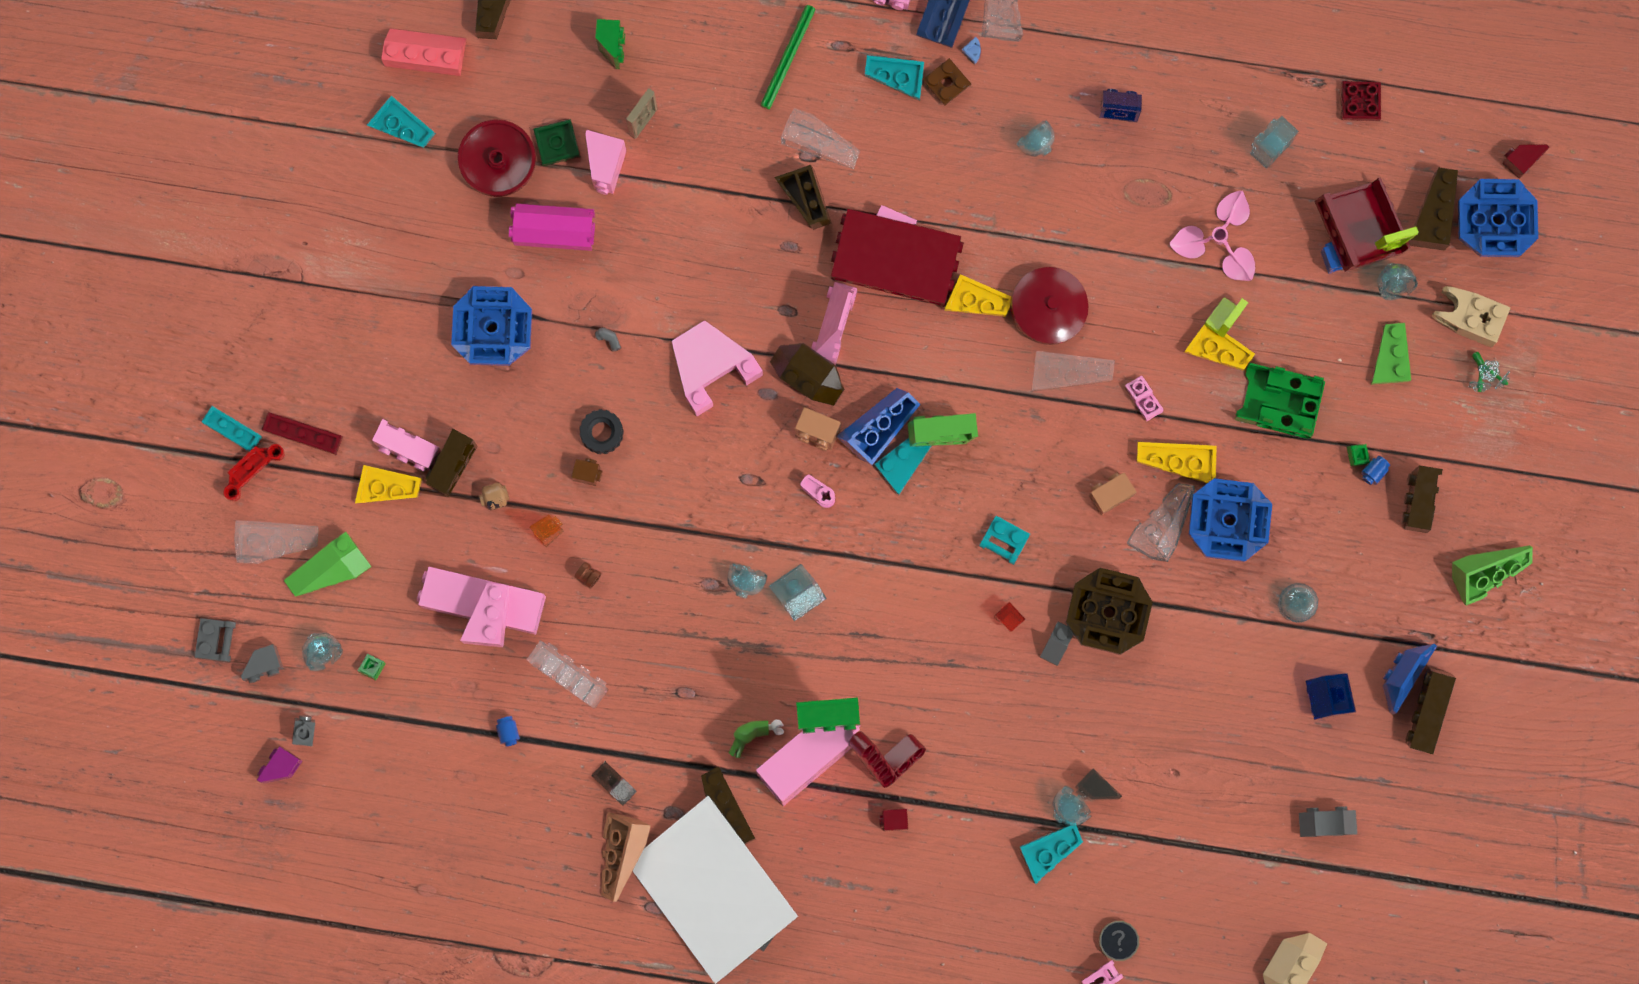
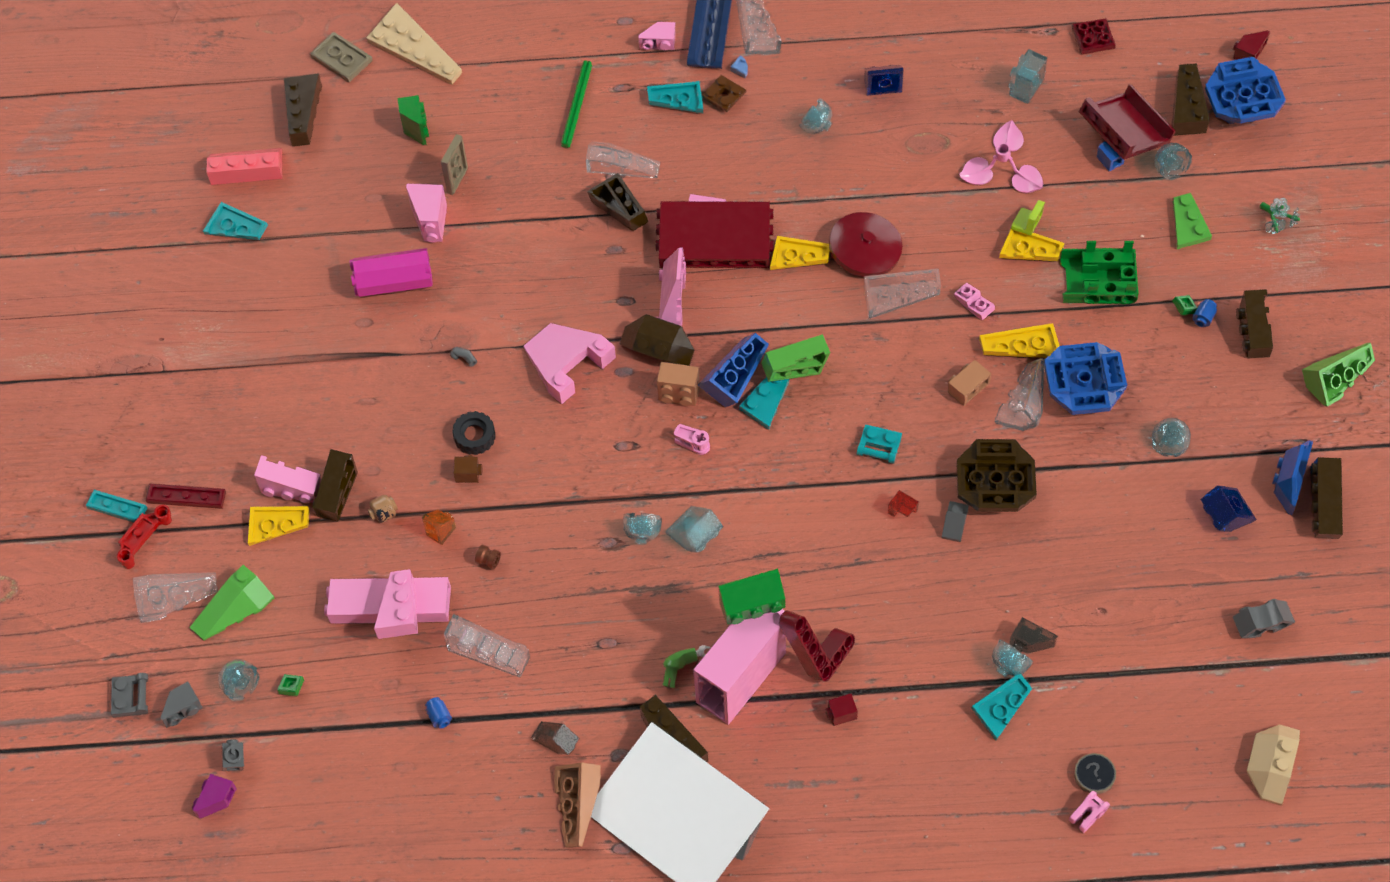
camera: 10 degrees left, 20 degrees down
(485, 307) = (346, 348): blue piece -> none
(496, 158) = (328, 230): dark red dish -> none
(556, 142) = (381, 211): dark green tile -> none
(1396, 239) = (1160, 121): lime tile -> none
(1467, 316) = (1249, 173): tan brick -> none

